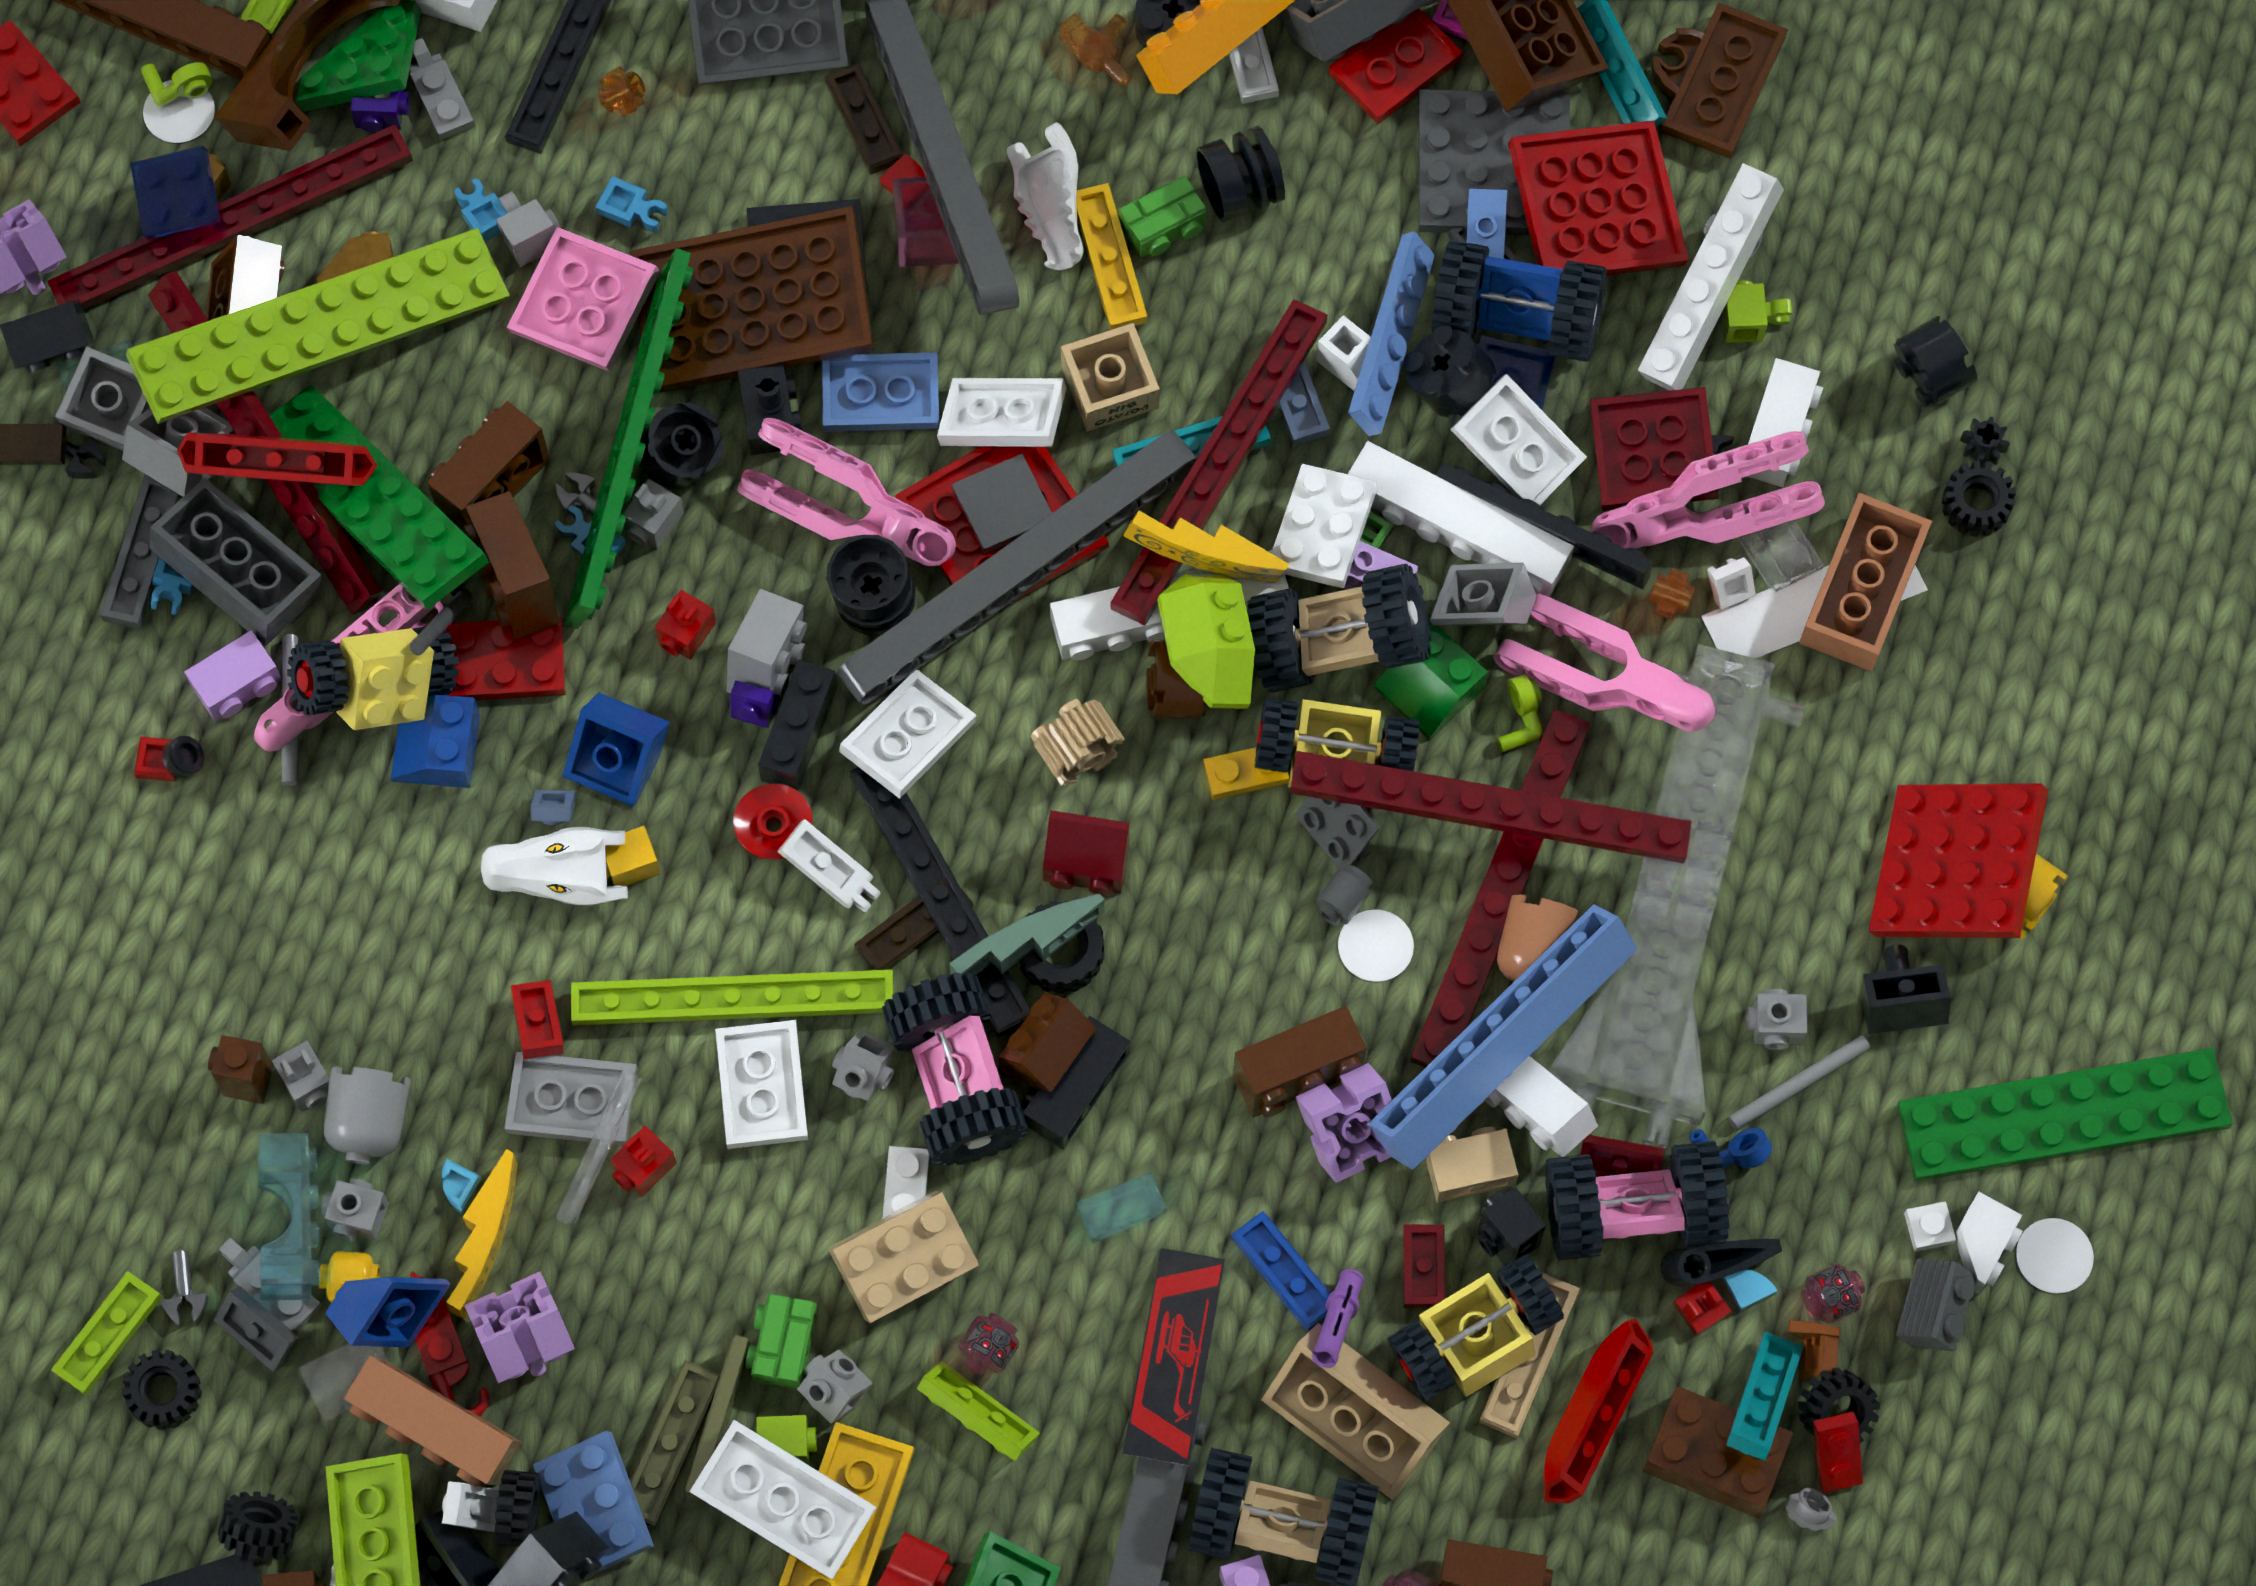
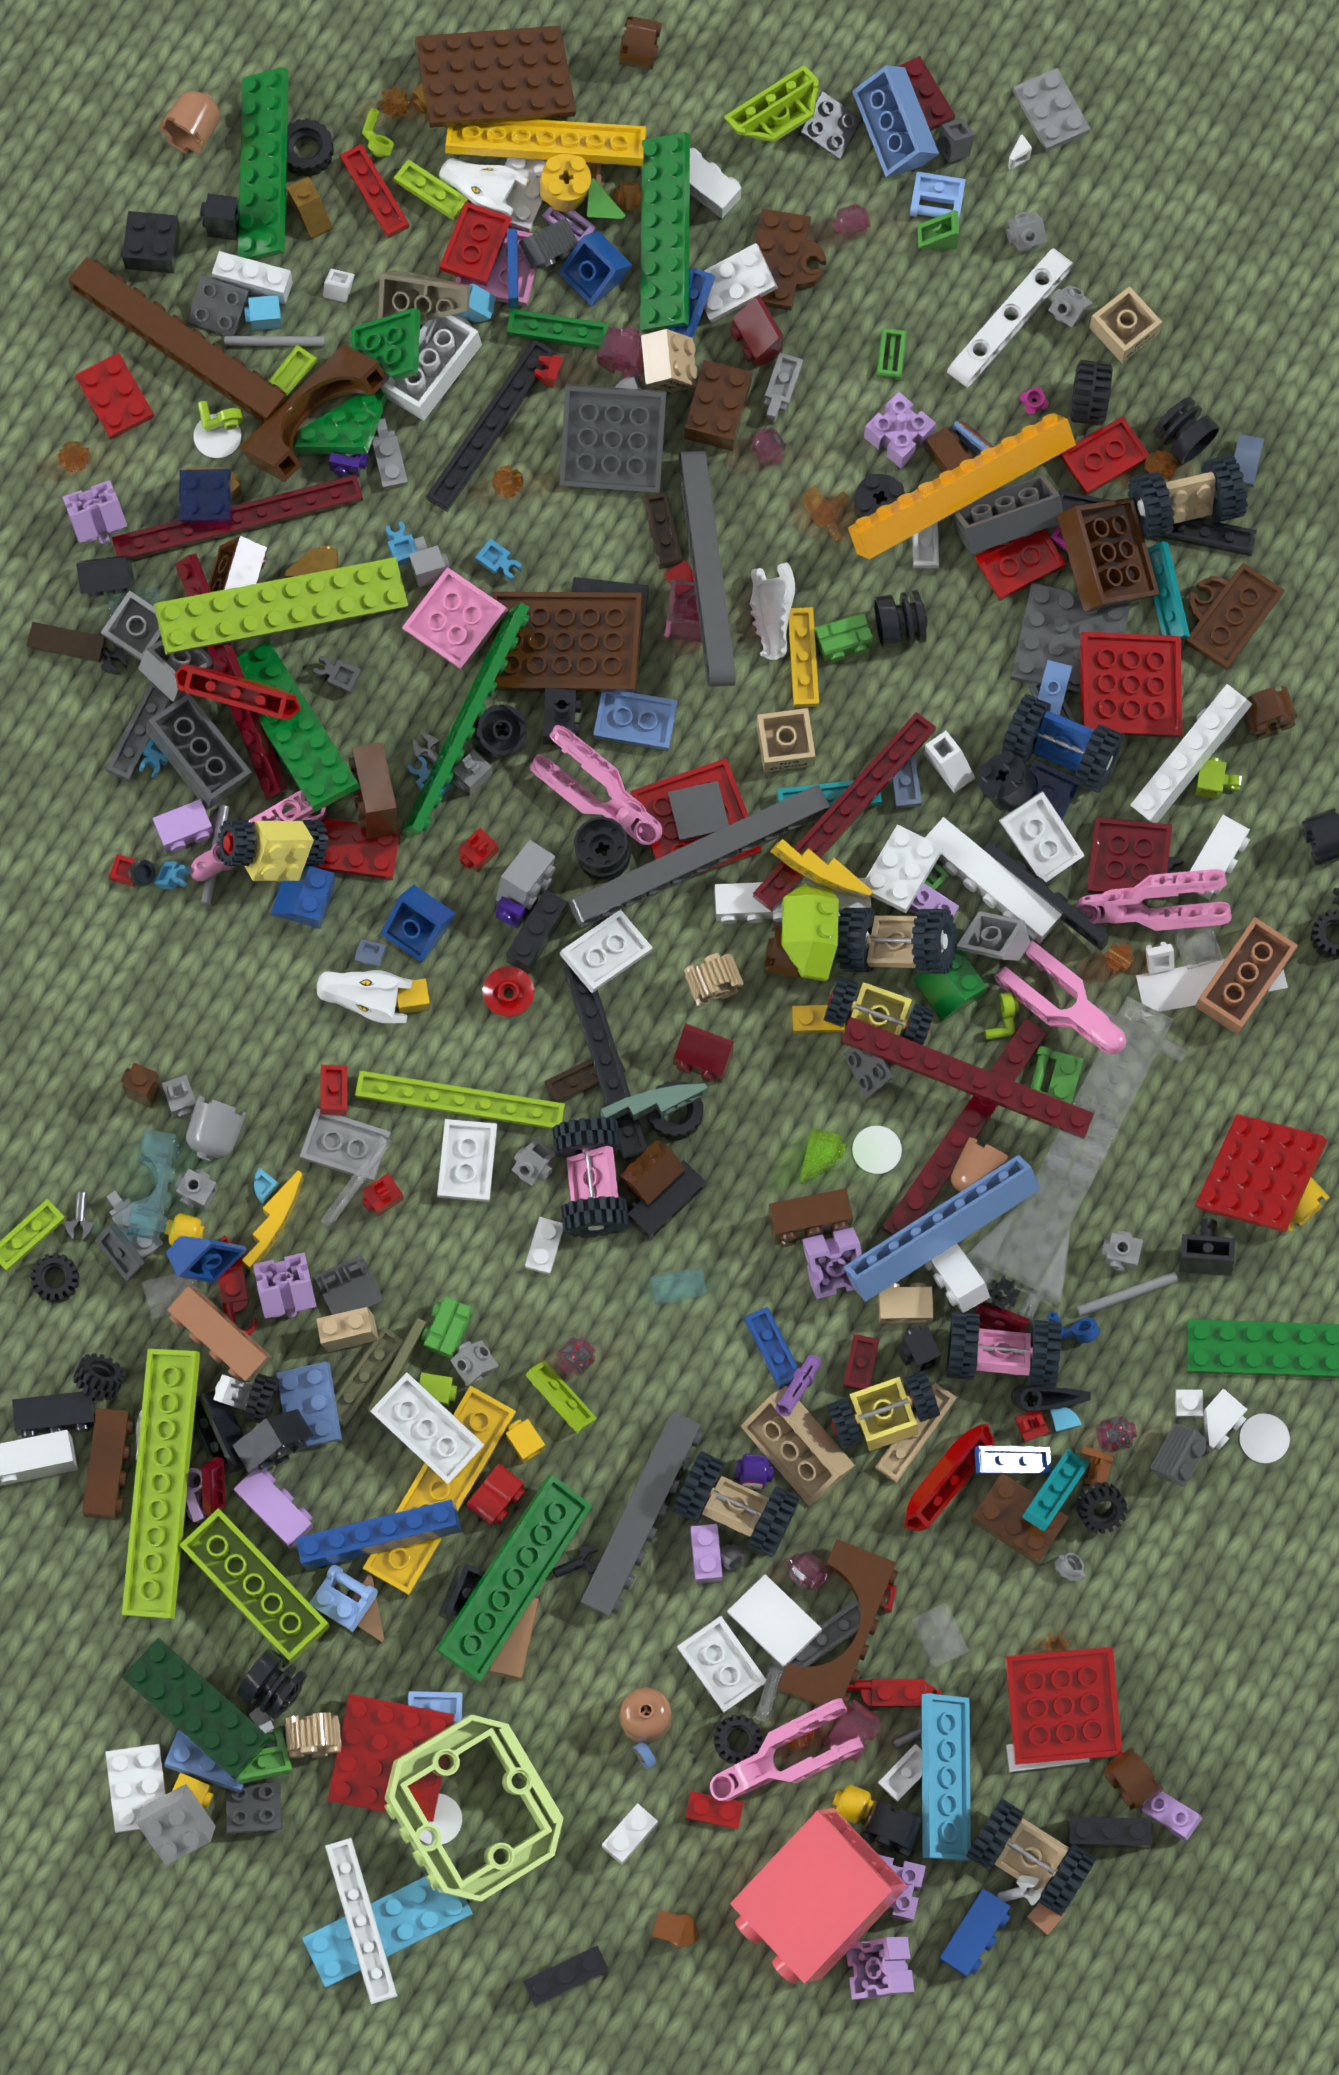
camera: 10 degrees right, 5 degrees up
(229, 751) = (171, 875): none -> dark azure plate
(428, 414) = (341, 676): none -> dark grey plate
(440, 622) = (321, 820): dark grey bar -> none
(489, 463) = (372, 720): reddish brown brick -> none
(619, 1313) = (348, 1286): none -> dark grey hinge
(629, 1375) = (347, 1329): none -> tan brick
(829, 866) = (538, 1028): white hinge -> none
(903, 1256) = (533, 1289): tan brick -> none
(937, 1488) = (525, 1440): none -> yellow brick
(1002, 412) = (710, 750): white plate -> none
(1174, 1357) = (690, 1388): black sticker -> none
(1294, 967) = (821, 1154): none -> clear neon green slope
(1297, 1464) = (753, 1471): none -> dark purple head
(1343, 895) = (862, 1113): dark grey brick -> none
(1391, 334) = (975, 748): medium blue plate -> none
(1623, 1109) = (1009, 1290): none -> black gear
(1630, 776) = (1064, 1074): none -> bright green plate
(1687, 1365) = (1013, 1460): none -> tile
(1810, 201) = (1270, 712): none -> reddish brown brick
(1838, 1452) = (1094, 1535): red plate -> none

